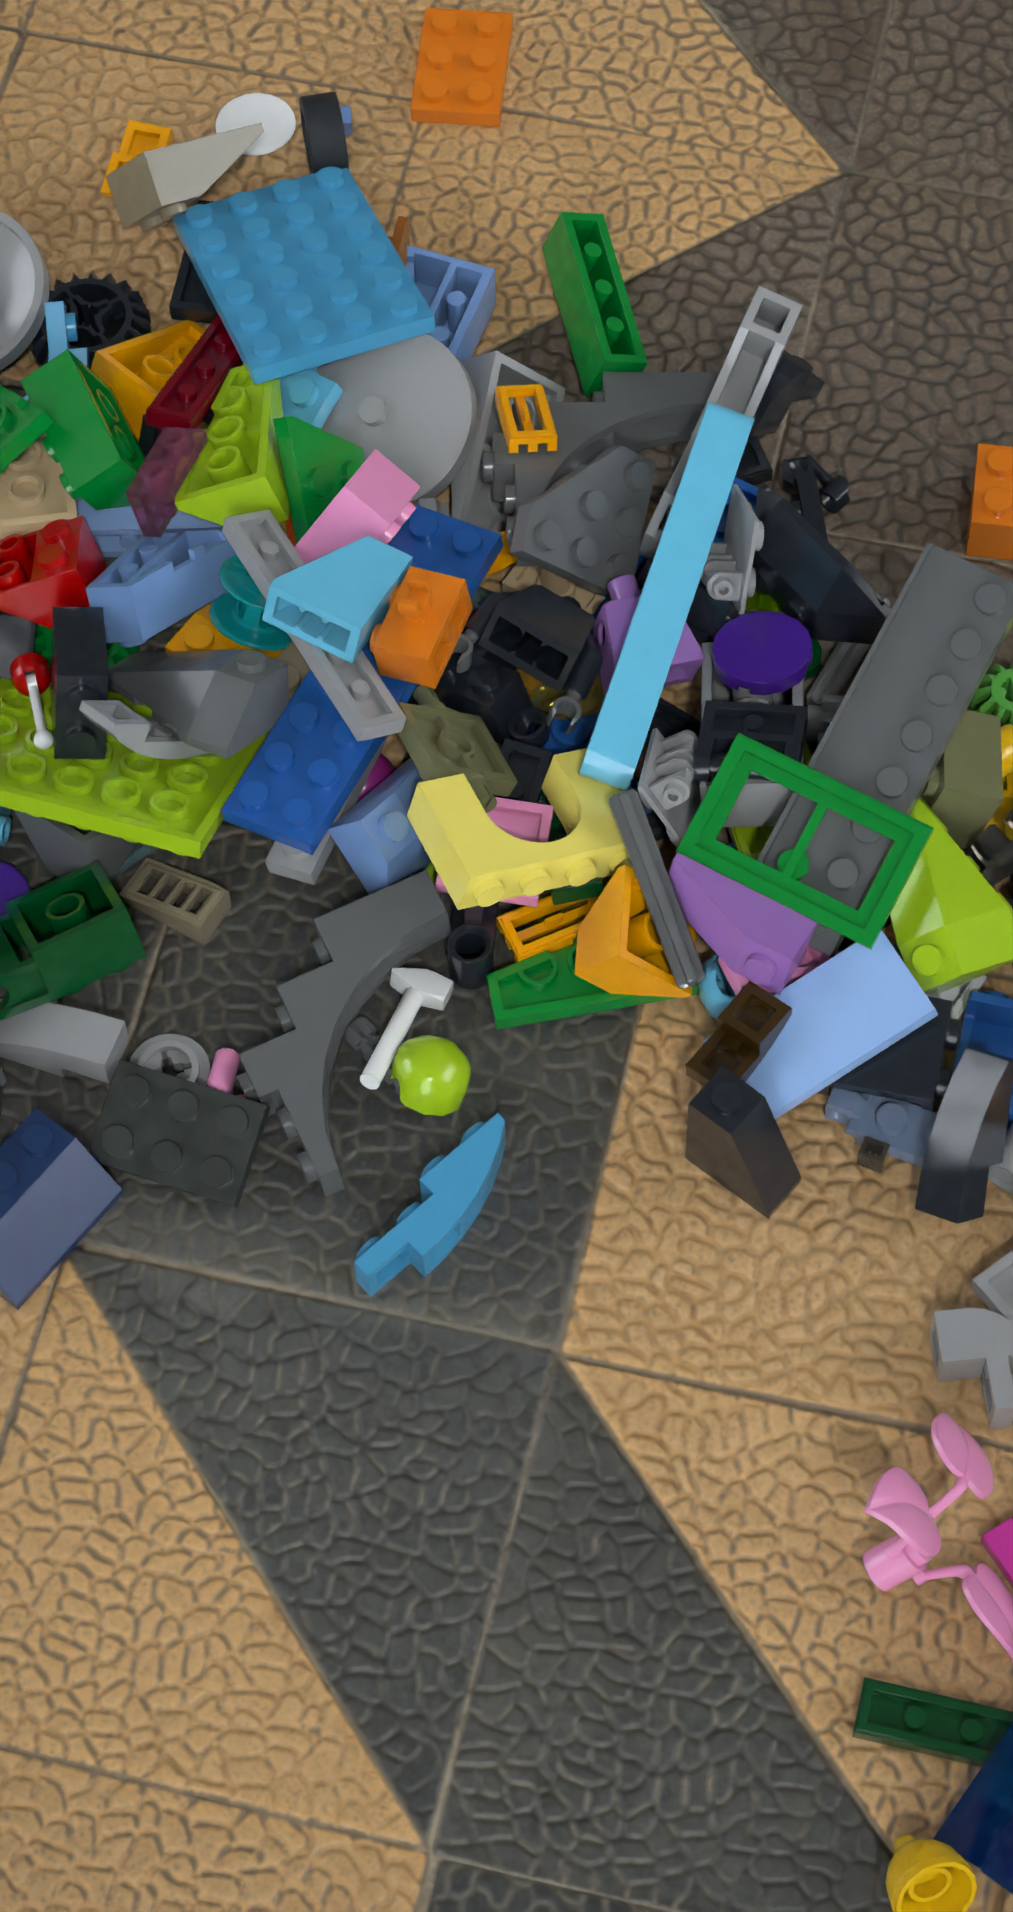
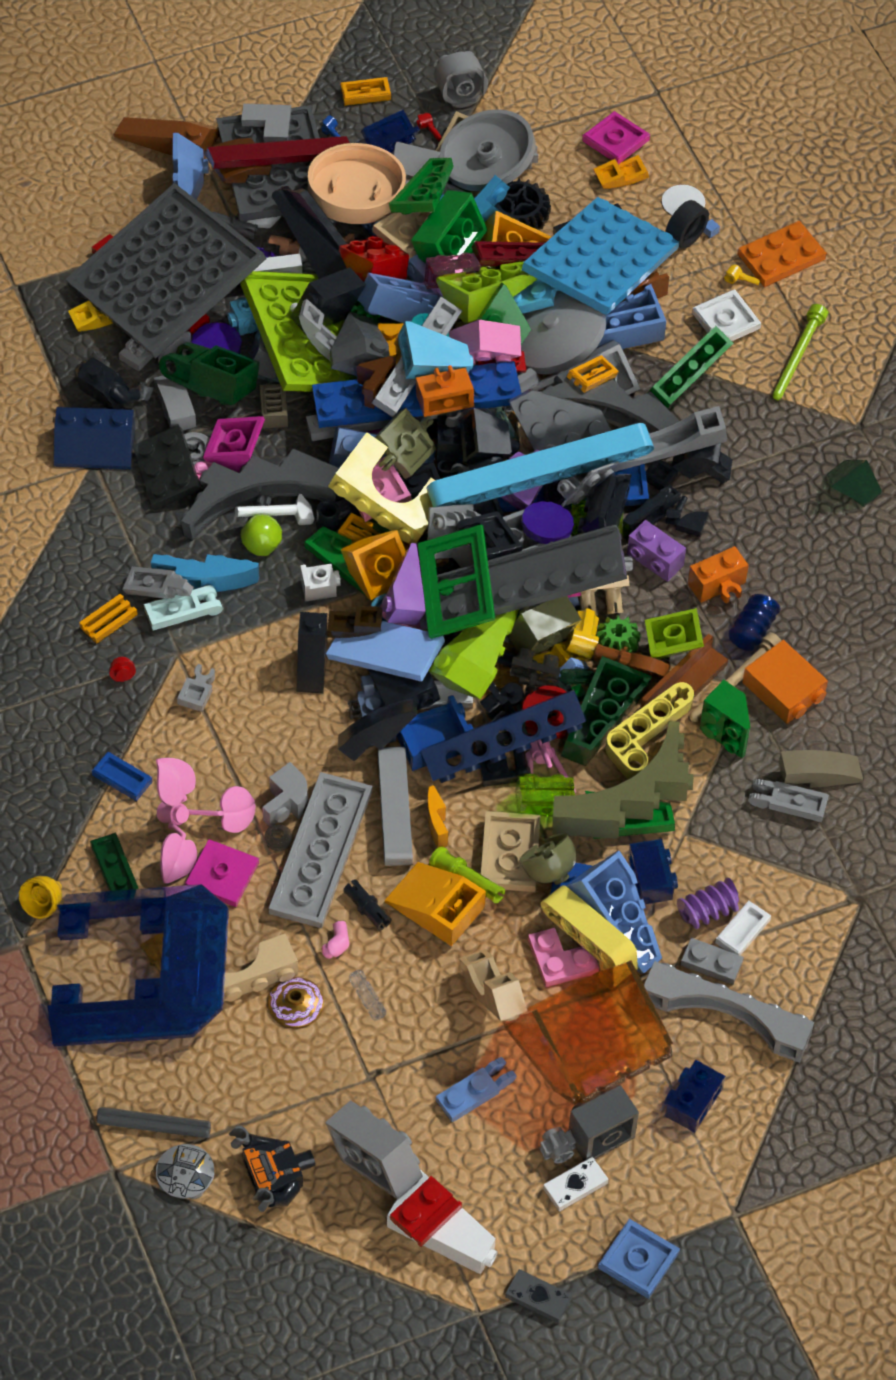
camera: 50 degrees right, 5 degrees down
(68, 128) = (616, 137): none -> dark pink plate
(168, 178) = (612, 184): slope -> none
(221, 997) = (233, 441): none -> dark pink slope
(308, 703) = (373, 376): none -> reddish brown slope
(405, 1375) = (105, 615): none -> light orange tile
(410, 1296) = (156, 583): none -> light grey hinge
(452, 143) = (735, 272): none -> yellow hand
(480, 1288) = (183, 608): none -> light aqua plate
(523, 200) = (728, 314): none -> white plate
(538, 1459) = (122, 669): none -> red plate
(586, 1063) = (319, 582): none -> white brick
(616, 96) = (815, 317): none -> lime piece
(657, 889) = (397, 549): dark grey axle -> none
(668, 1371) = (198, 691): none -> light grey plate
(750, 1595) = (122, 776): none -> blue tile
(868, 477) = (693, 523): none -> black tile
(890, 546) = (656, 550): none -> medium lavender brick
(946, 231) = (855, 480): none -> clear green slope

